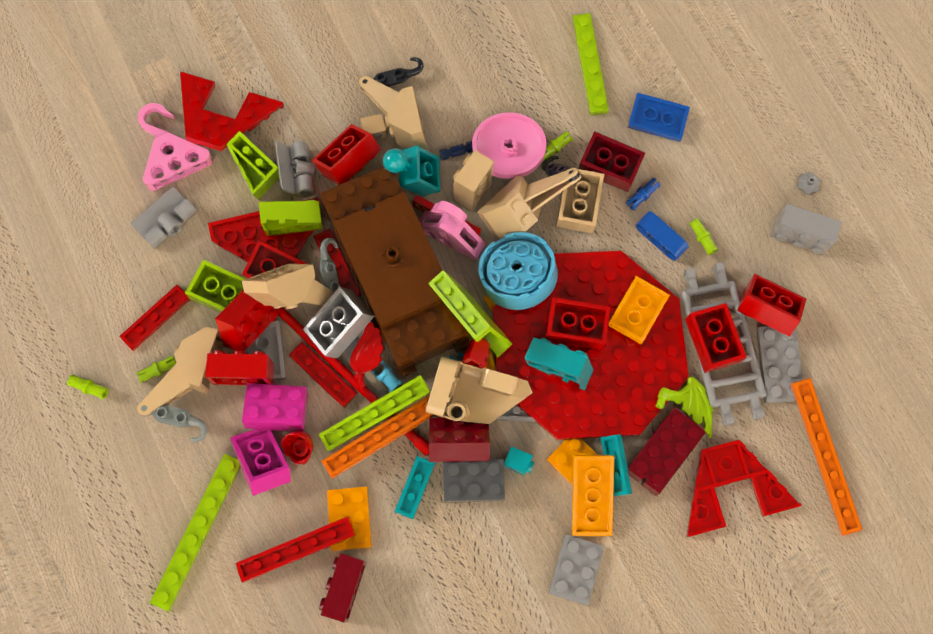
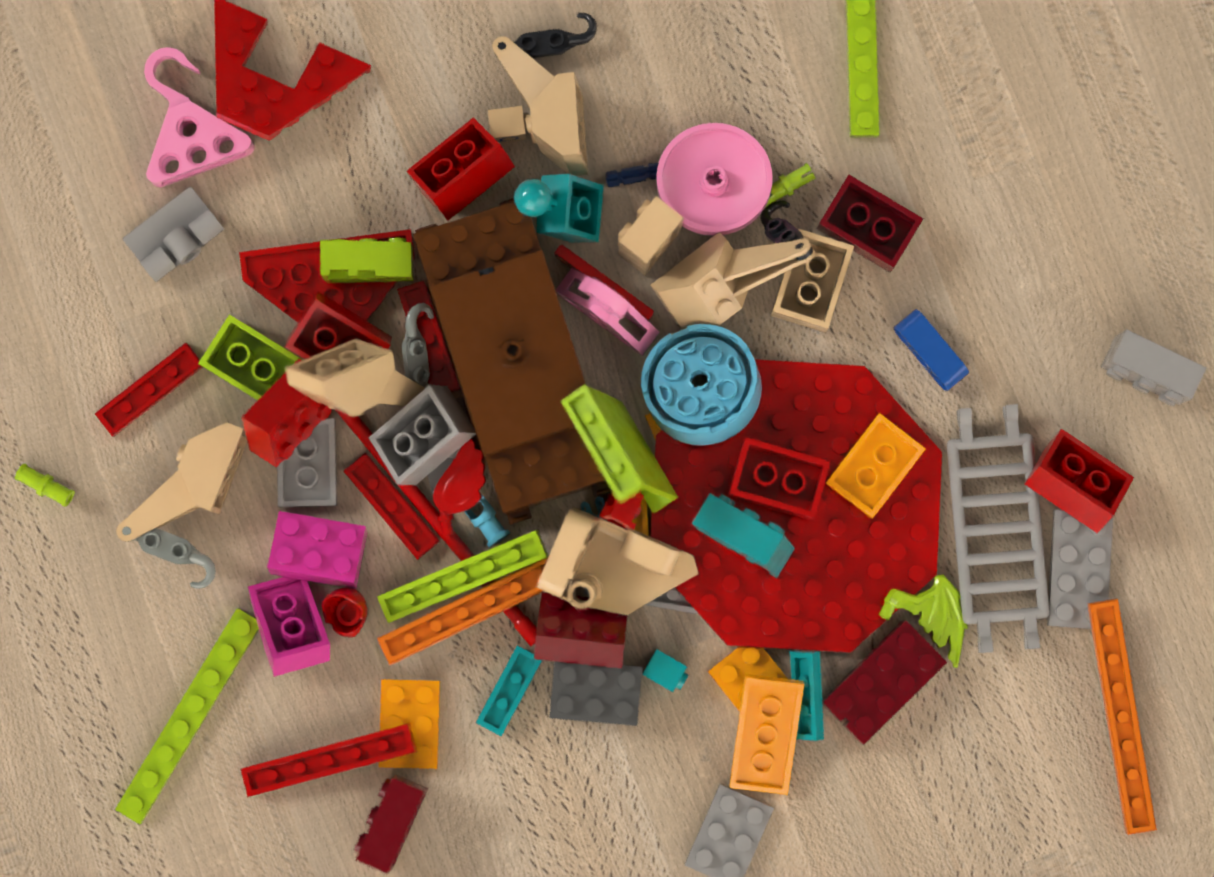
camera: 10 degrees right, 10 degrees up
(156, 369) = (147, 469): lime pin -> none
(239, 368) = (270, 489): red brick -> none
(254, 164) = (318, 167): lime wedge -> none
(294, 169) = (379, 181): light grey panel -> none
(643, 194) = (913, 278): blue pin -> none
(658, 117) = (956, 155): blue plate -> none
(703, 236) = (995, 358): lime pin -> none
(715, 337) = (983, 523): red brick -> none
(726, 465) = (971, 713): red wing -> none
(808, 183) = (1170, 291): light grey plant -> none

